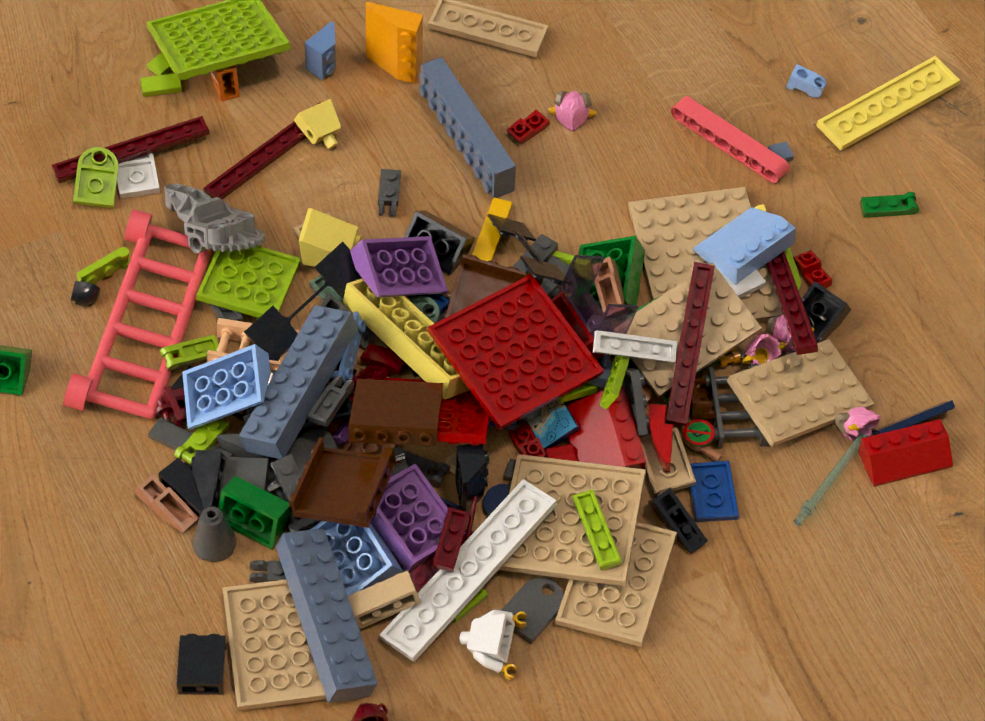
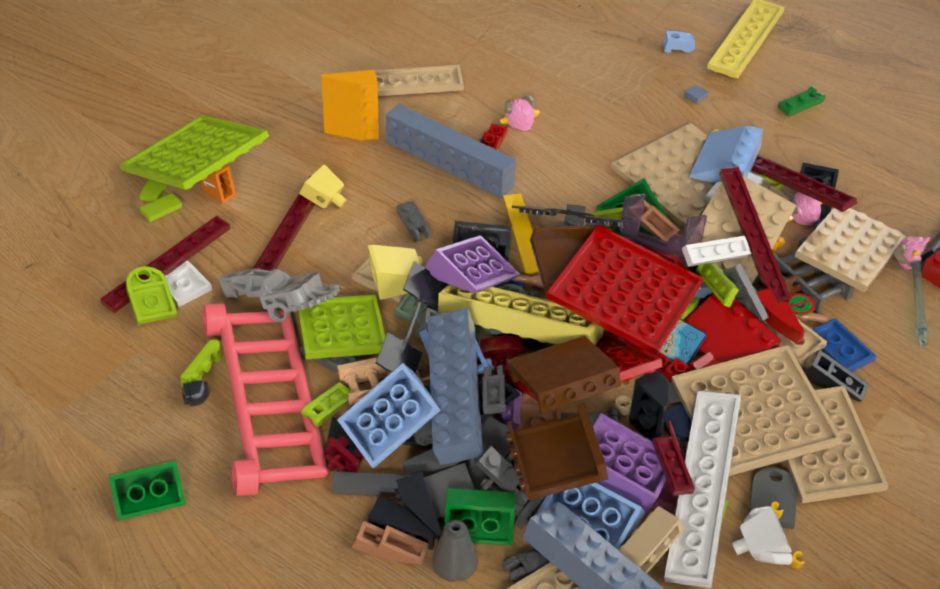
camera: 25 degrees left, 10 degrees down
(201, 439) = (387, 474): lime plate -> none
(320, 52) = (291, 136): medium blue slope -> none
(597, 530) = (787, 407): lime tile -> none
(730, 139) = (654, 96): coral beam -> none
(761, 350) = (798, 227): bright pink hair -> none
(811, 270) = (783, 159): red slope -> none

